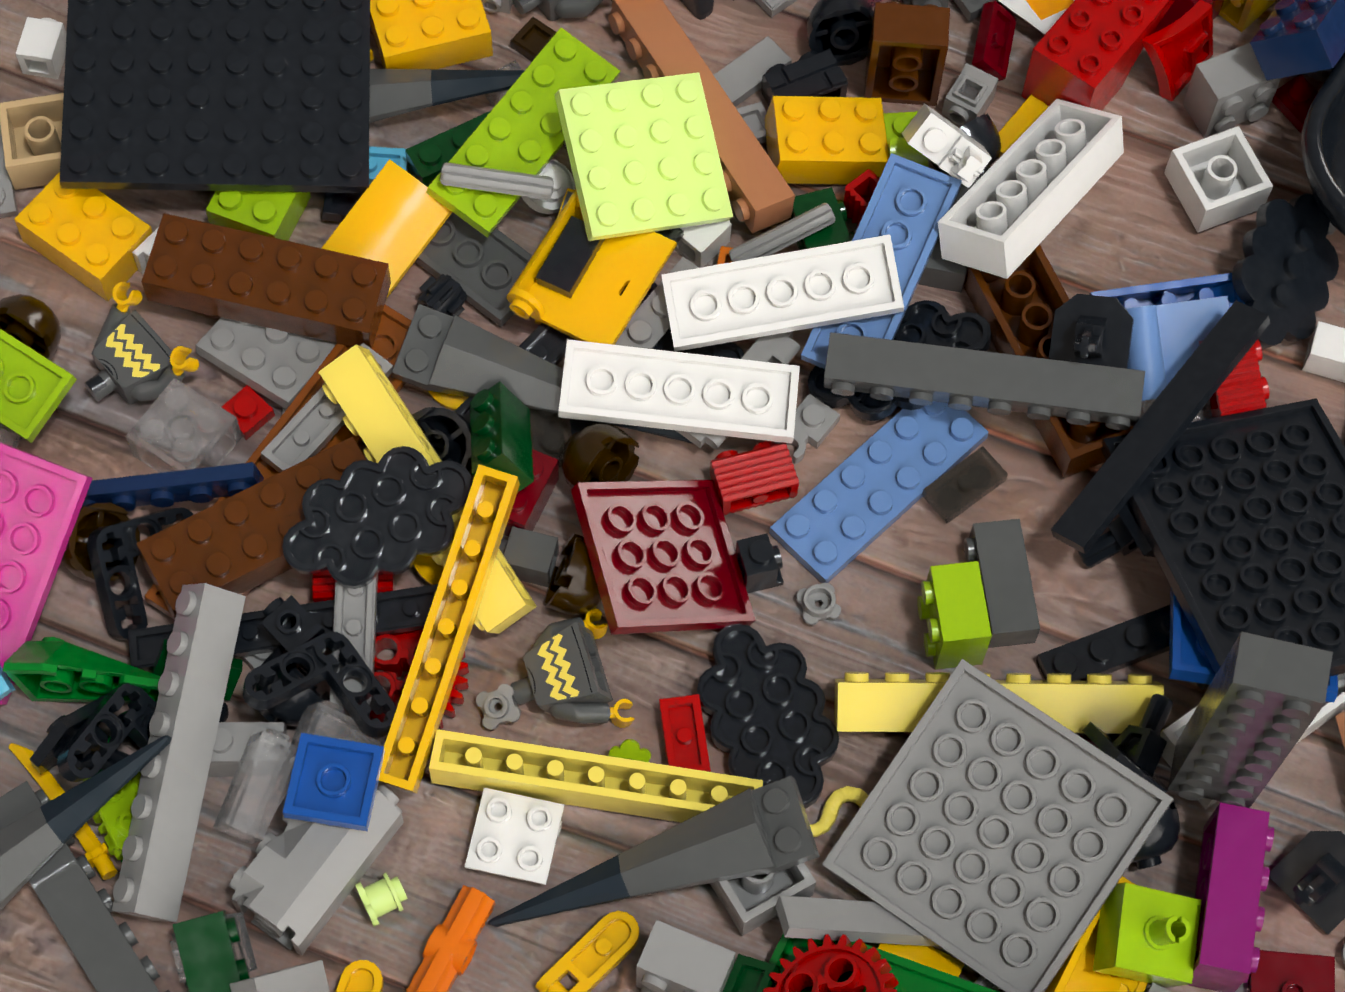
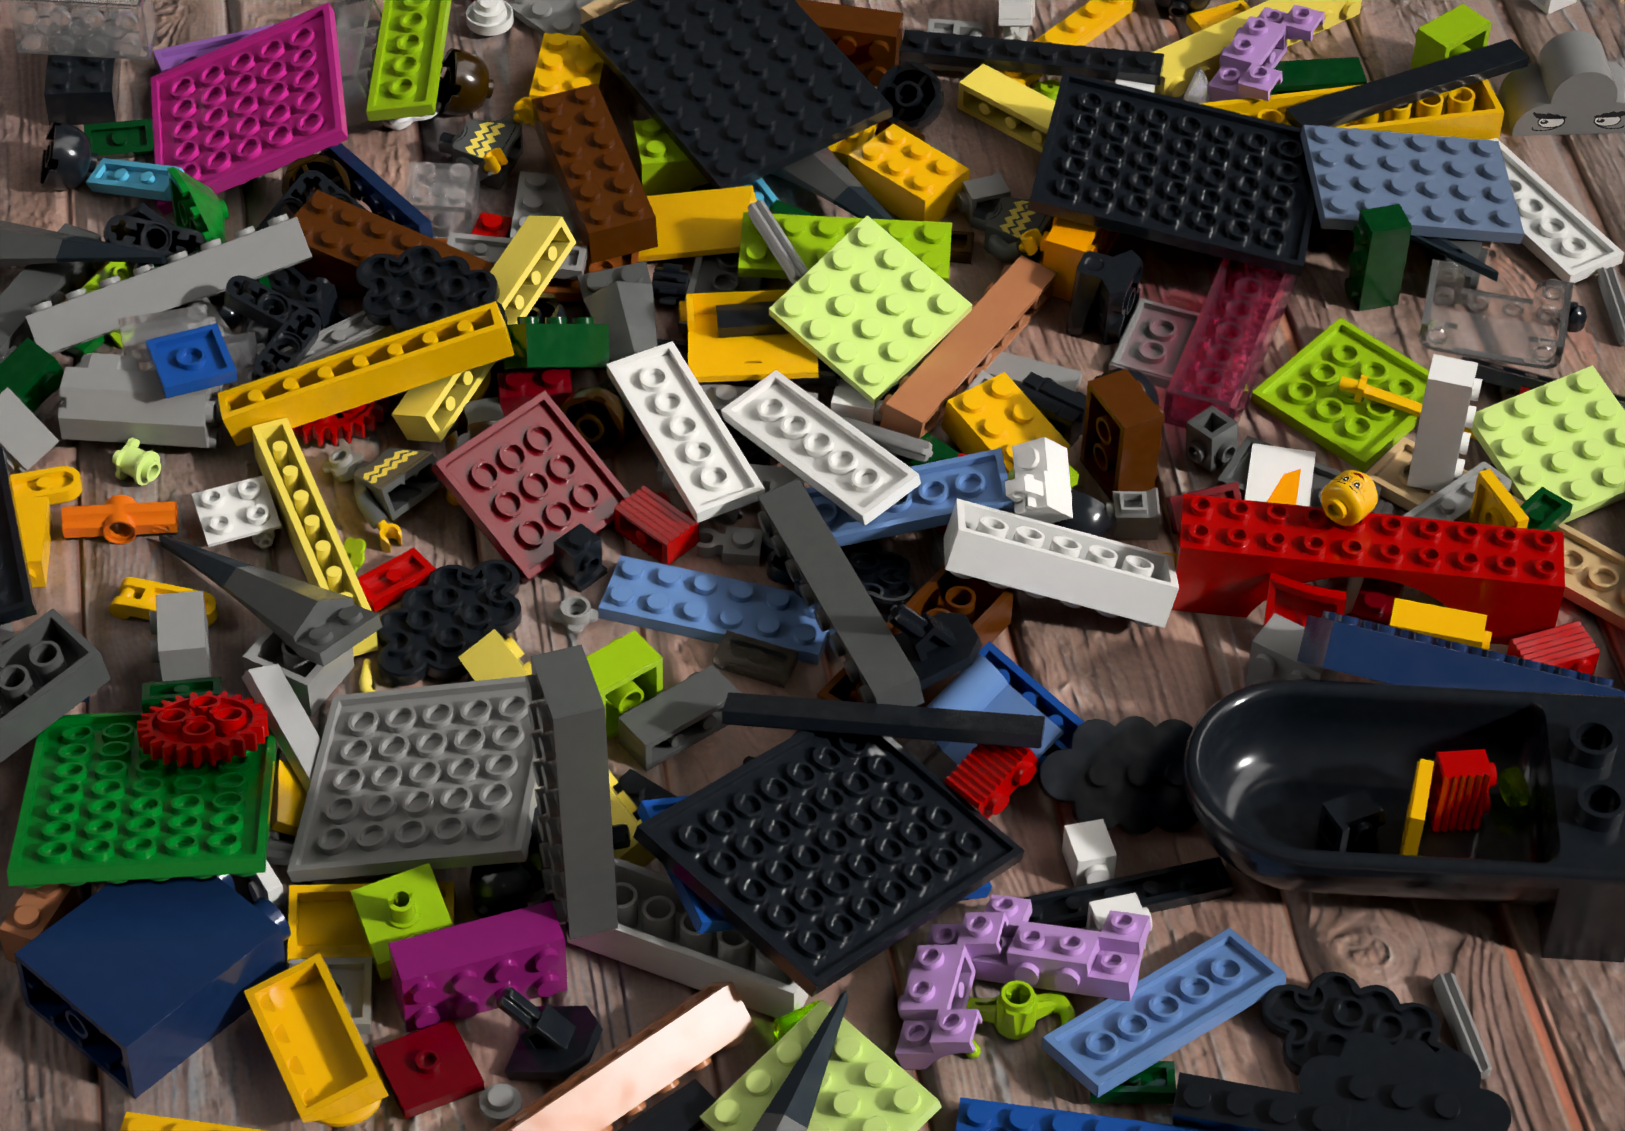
camera: 60 degrees right, 20 degrees down
(1218, 179) = (1187, 687): white brick -> none

